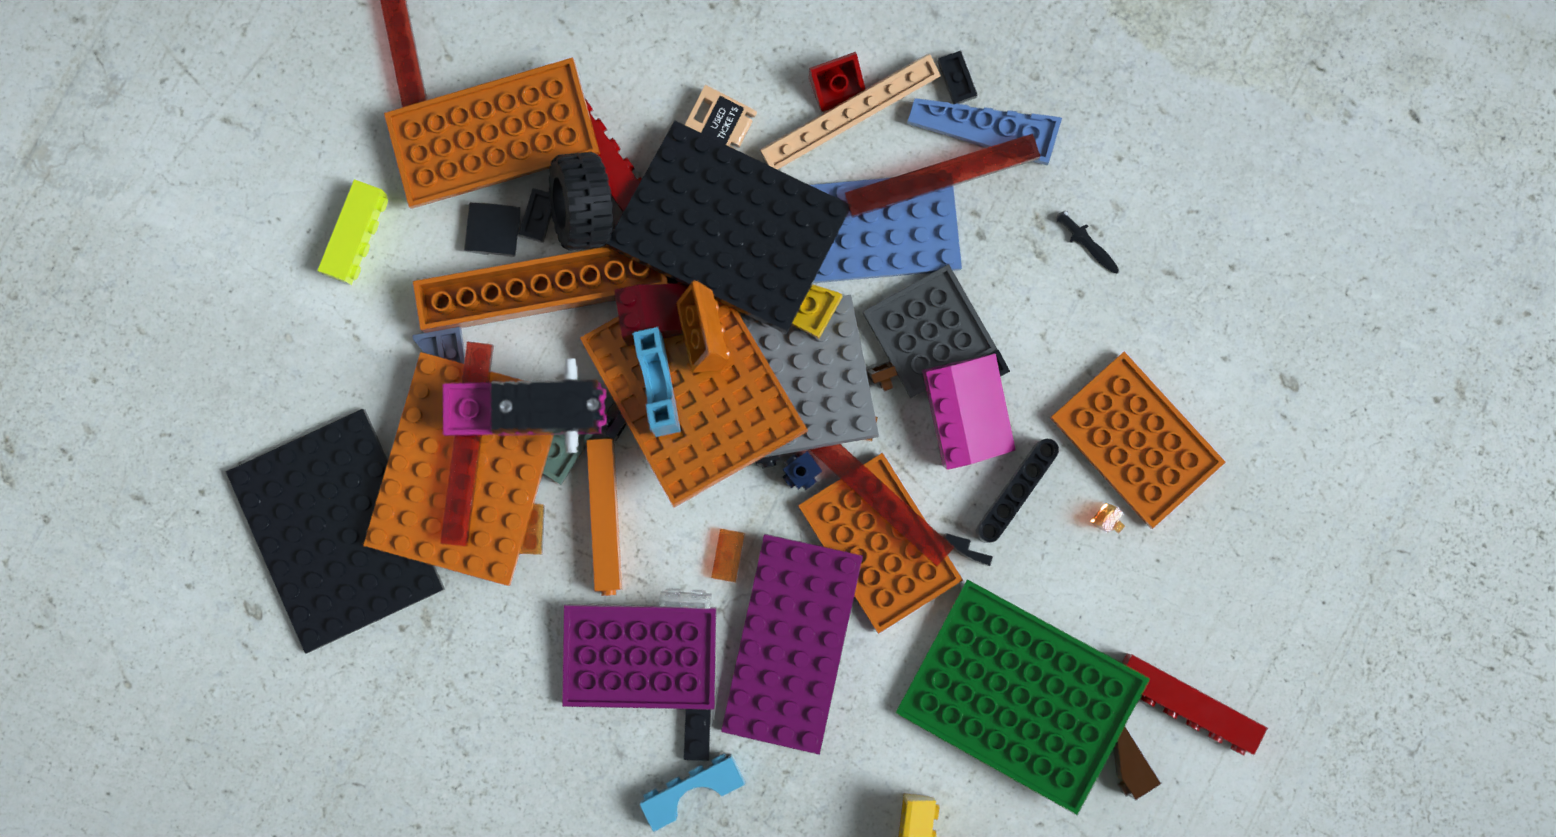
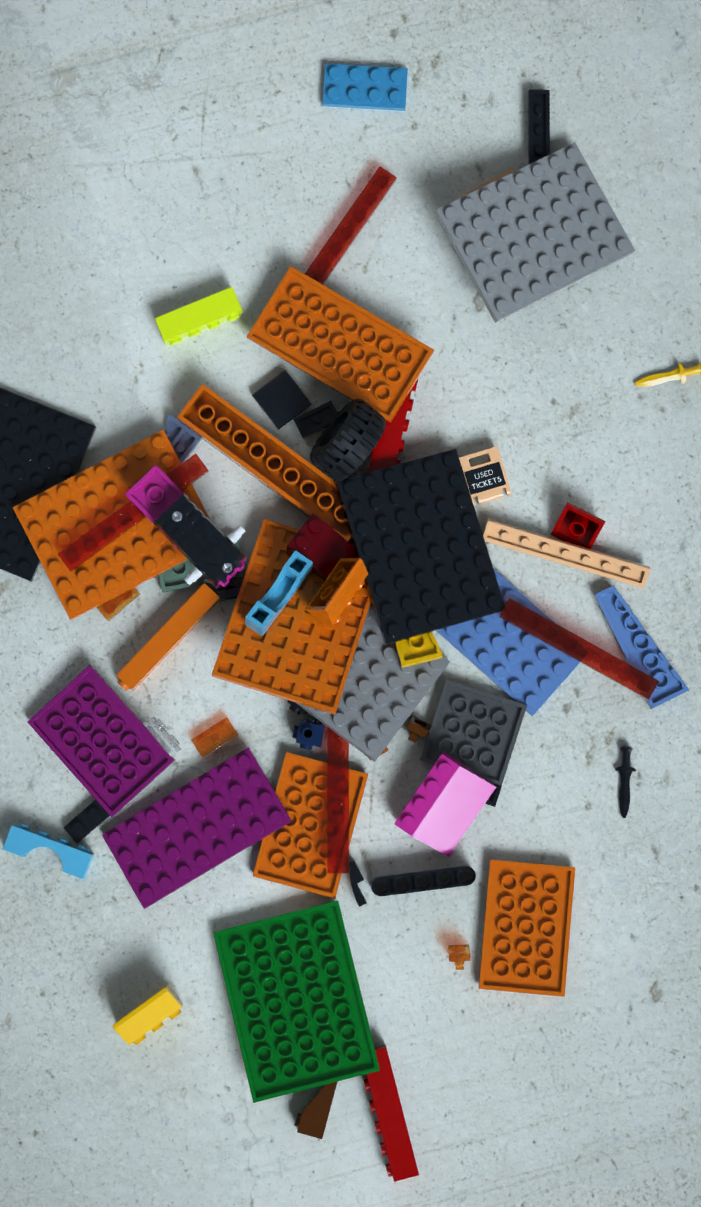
camera: 45 degrees right, 0 degrees up
(957, 78) = (652, 600): black plate -> none

